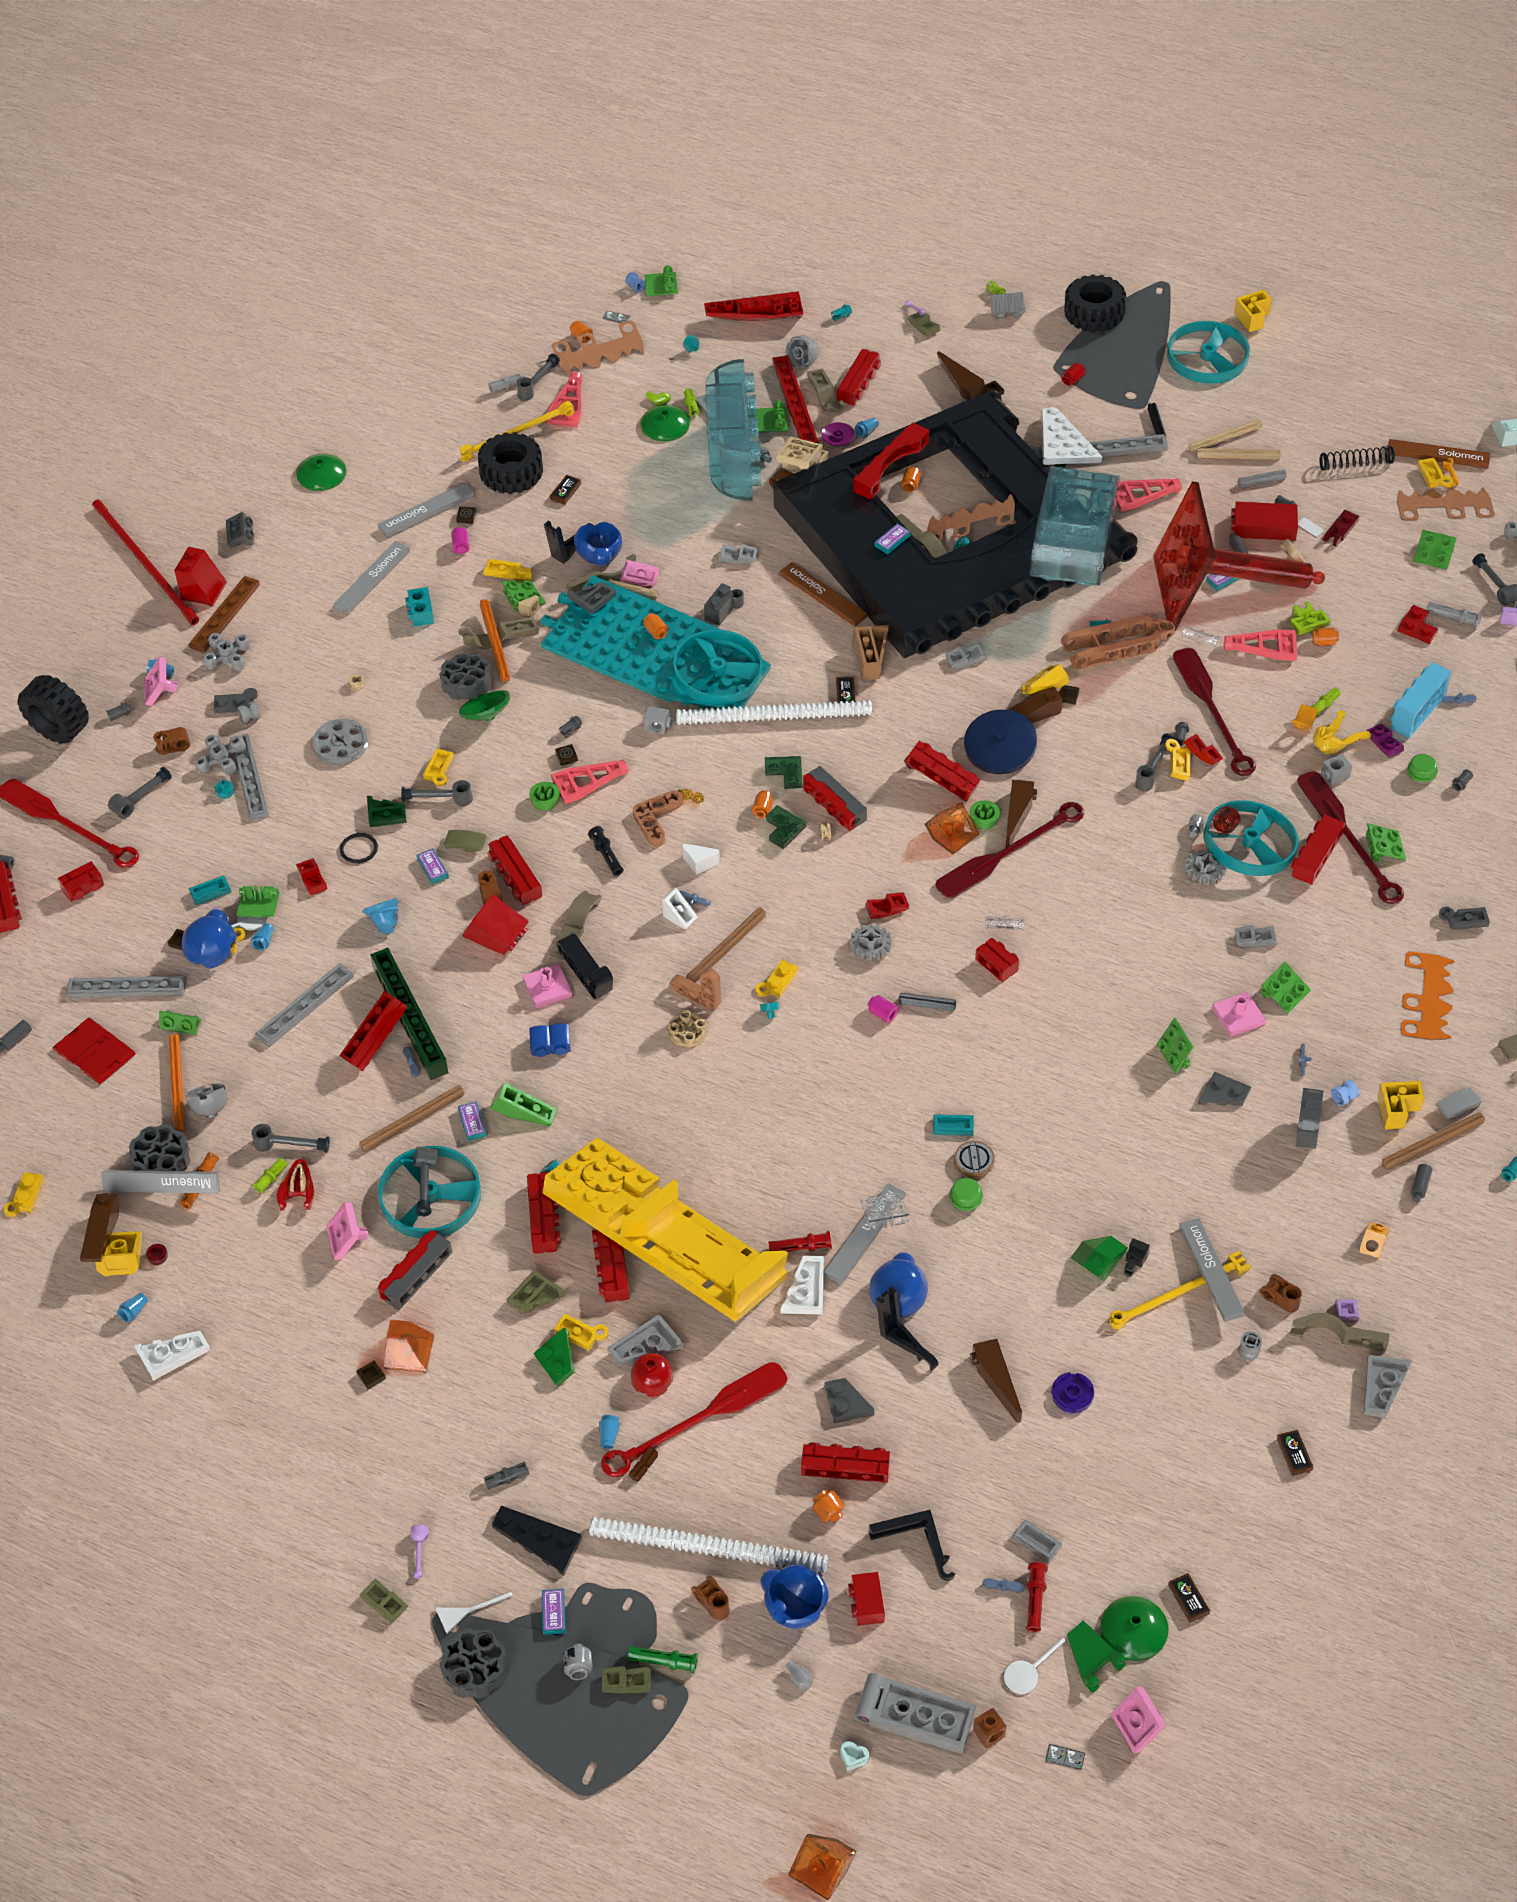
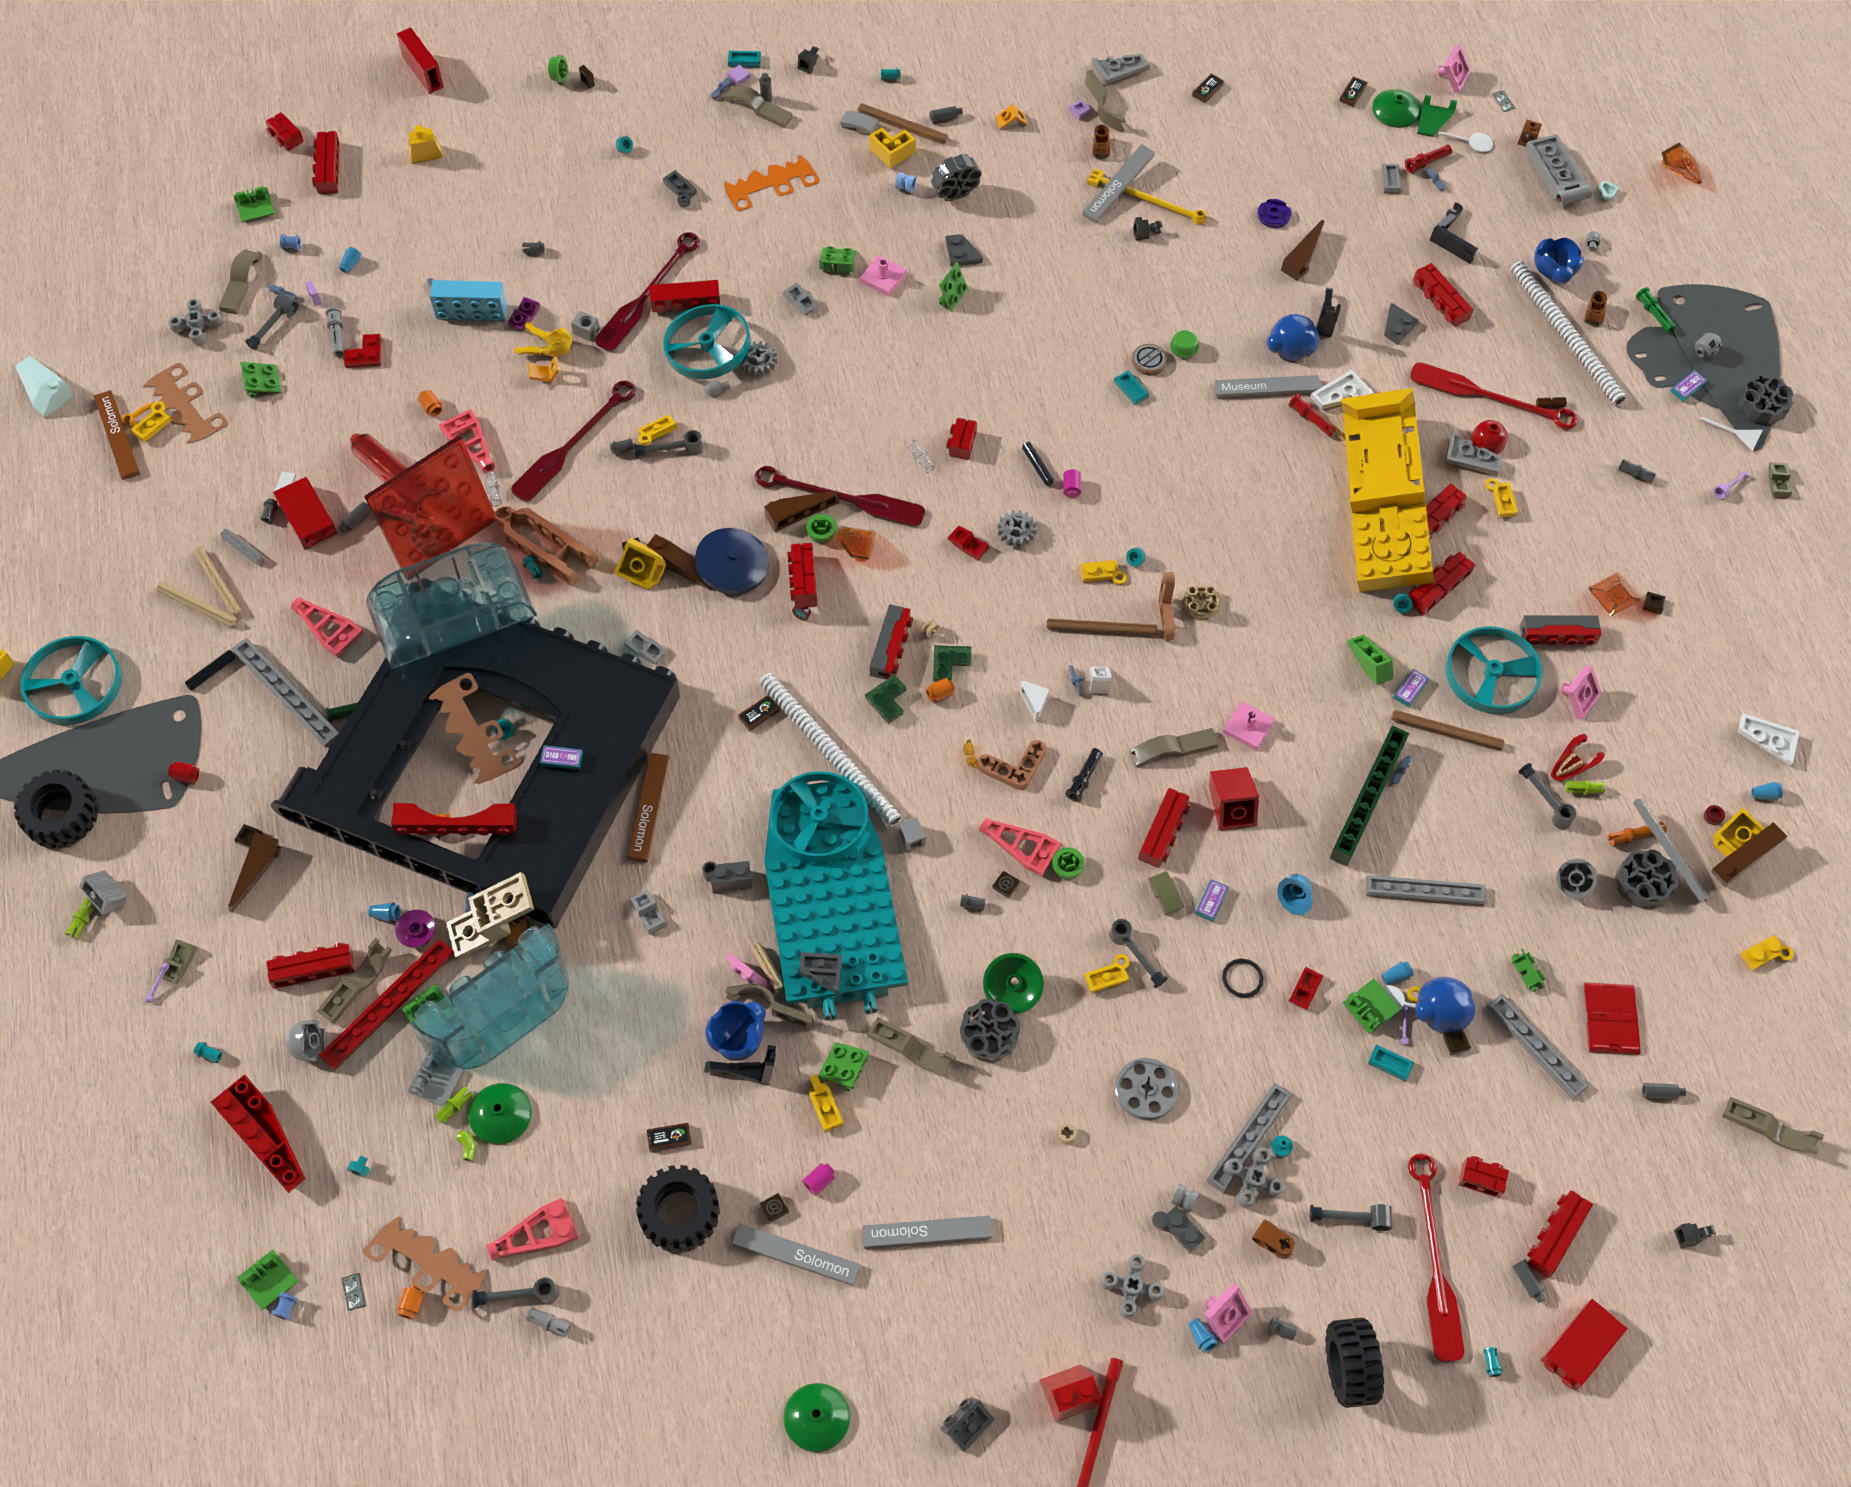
camera: 130 degrees left, 10 degrees up
(176, 1083) = (1578, 925): orange axle -> none
(224, 613) = (1083, 1340): dark orange tile -> none
(373, 1031) = (1416, 795): red brick -> none
(385, 812) = (1192, 981): dark green wing -> none
(420, 606) = (929, 1143): teal brick -> none
(424, 1159) = (1479, 685): dark grey piece -> none
(488, 886) = (1201, 831): dark orange piece -> none
(494, 640) = (923, 1043): orange axle -> none
(529, 606) = (857, 1041): tan slope -> none
(534, 1293) = (1502, 545): olive wing -> none
(547, 1541) = (1654, 426): black wing -> none
(549, 1039) = (1298, 682): blue brick -> none
(556, 1357) = (1534, 498): green wing -> none
(564, 409) = (557, 1212): yellow hinge -> none
(594, 978) = (1215, 699): black beam -> none
(608, 1430) = (1550, 434): dark azure cone -> none
(626, 1681) = (1684, 318): olive slope -> none
(655, 626) = (815, 892): orange brick -> none
(828, 1506) = (1480, 286): orange head -> none
(867, 1598) = (1515, 233): red brick -> none
(869, 648) = (702, 714): medium nougat wedge -> none
(884, 1208) = (1244, 377): clear hinge -> none
(926, 539) = (517, 766): dark tan piece -> none
(1063, 441) = (314, 702): white wing -> none
(1099, 1255) = (1168, 242): green slope -> none
(1199, 749) = (631, 420): red slope -> none
(1226, 819) = (709, 353): clear red head -> none
(1250, 1345) = (1156, 139): light grey wheel -> none
(1292, 552) = (342, 465): tan tile -> none
(1303, 1058) = (892, 222): sand blue piece -> none
(1307, 619) = (415, 423): lime plate -> none
(1325, 701) = (509, 369): lime axle -> none
(1327, 464) = (181, 498): black piece -> none
(1341, 527) = (273, 458): dark red hinge -> none
(1384, 842) = (642, 265): bright green hinge -> none
(1422, 768) = (541, 274): bright green piece -> none

